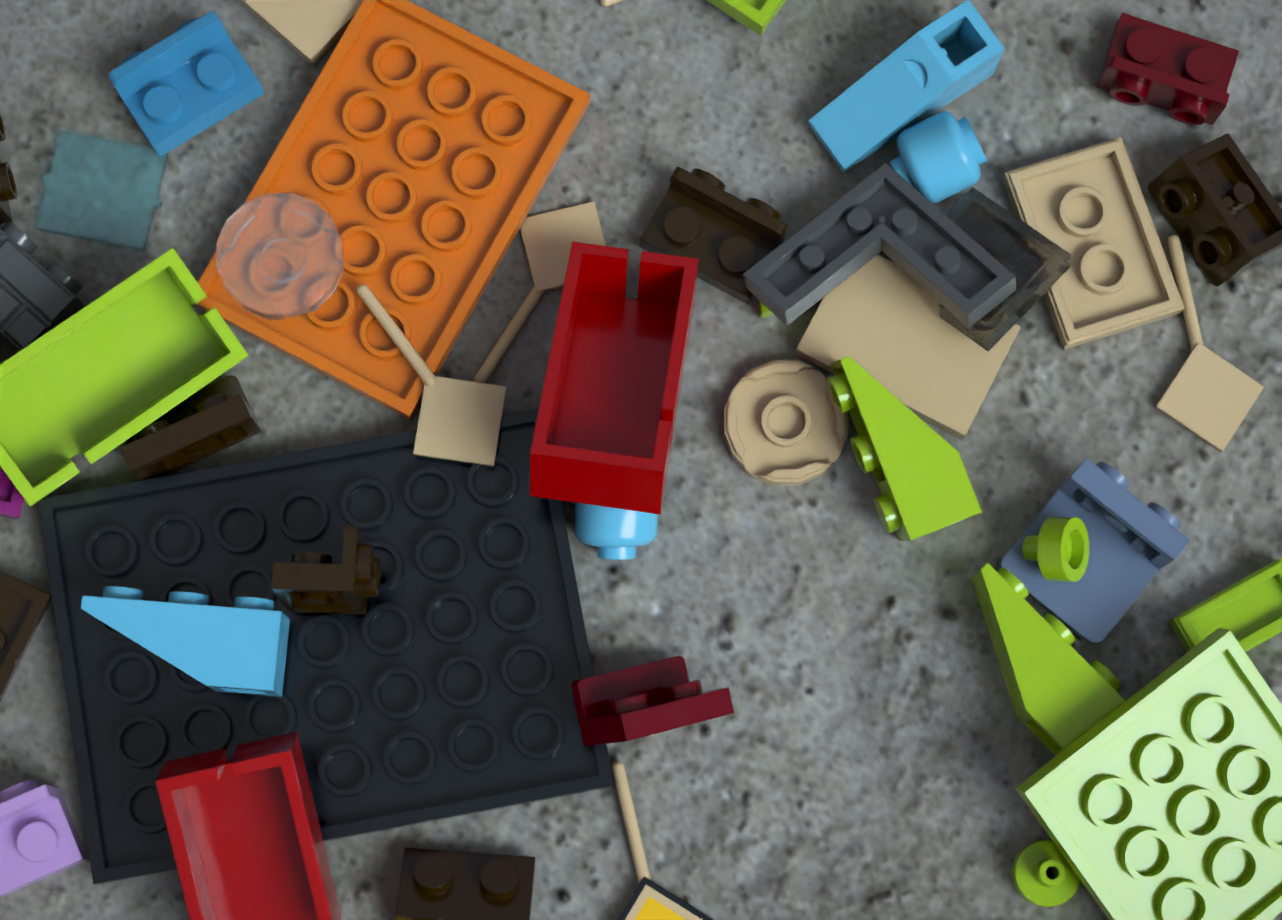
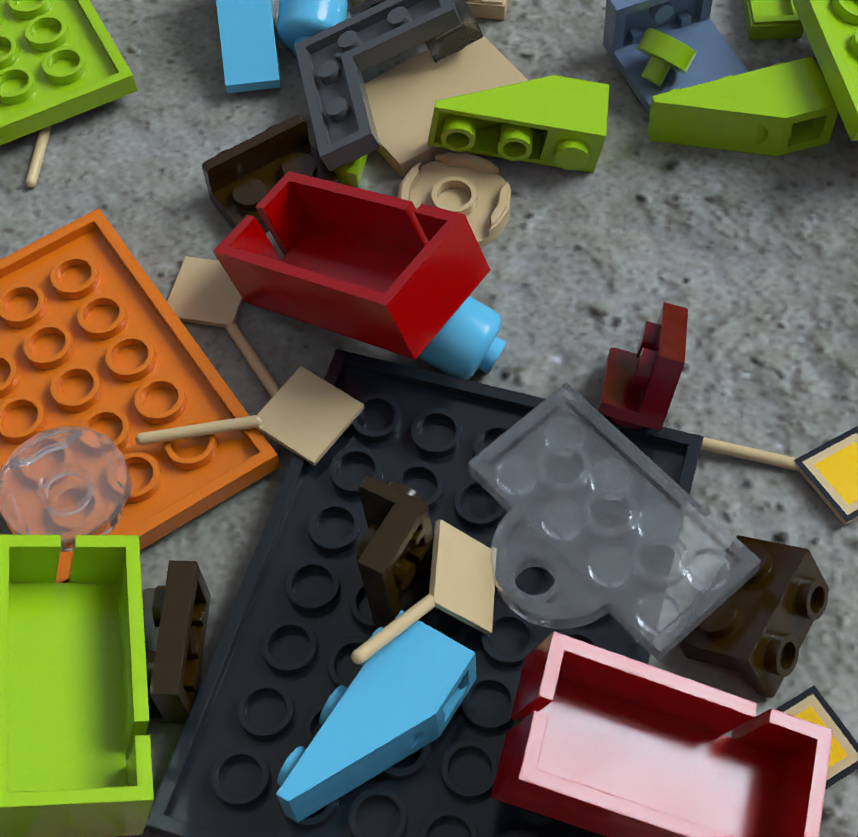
camera: 55 degrees left, 20 degrees down
(339, 645) = (458, 586): none -> tan piece
(462, 737) = (604, 528): none -> clear plate

